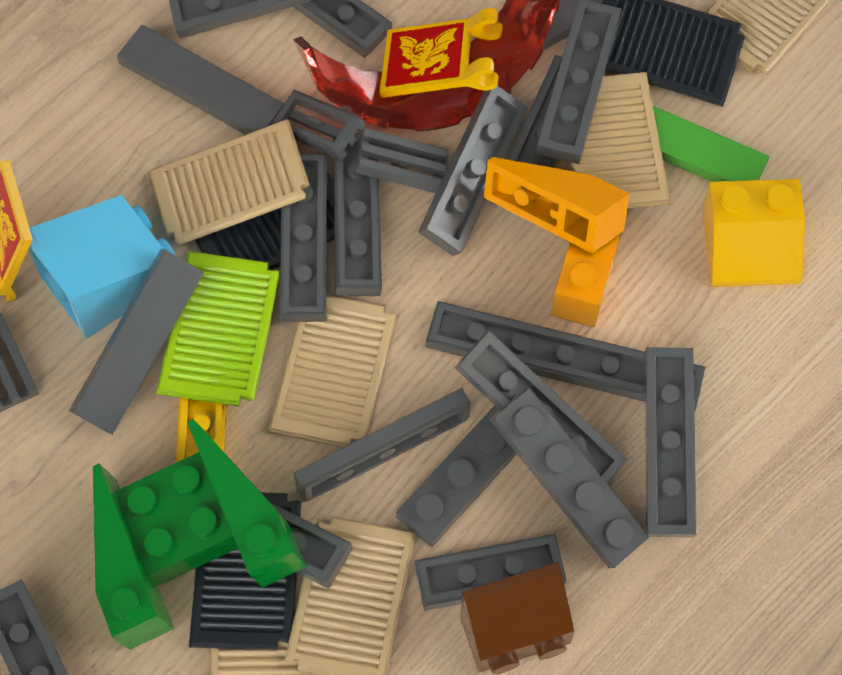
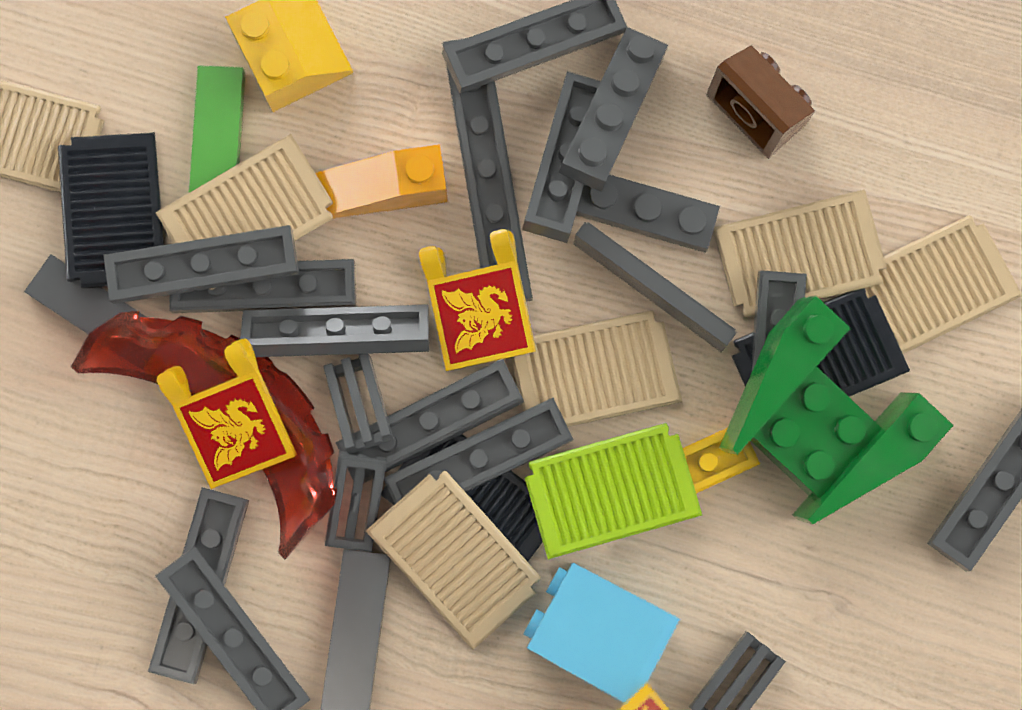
camera: 115 degrees left, 15 degrees up
(136, 341) = (665, 555): dark grey tile -> none
(439, 292) = (479, 311): none -> flag
(448, 575) = (719, 149): dark grey tile -> none
(559, 200) = (347, 218): light orange slope -> none

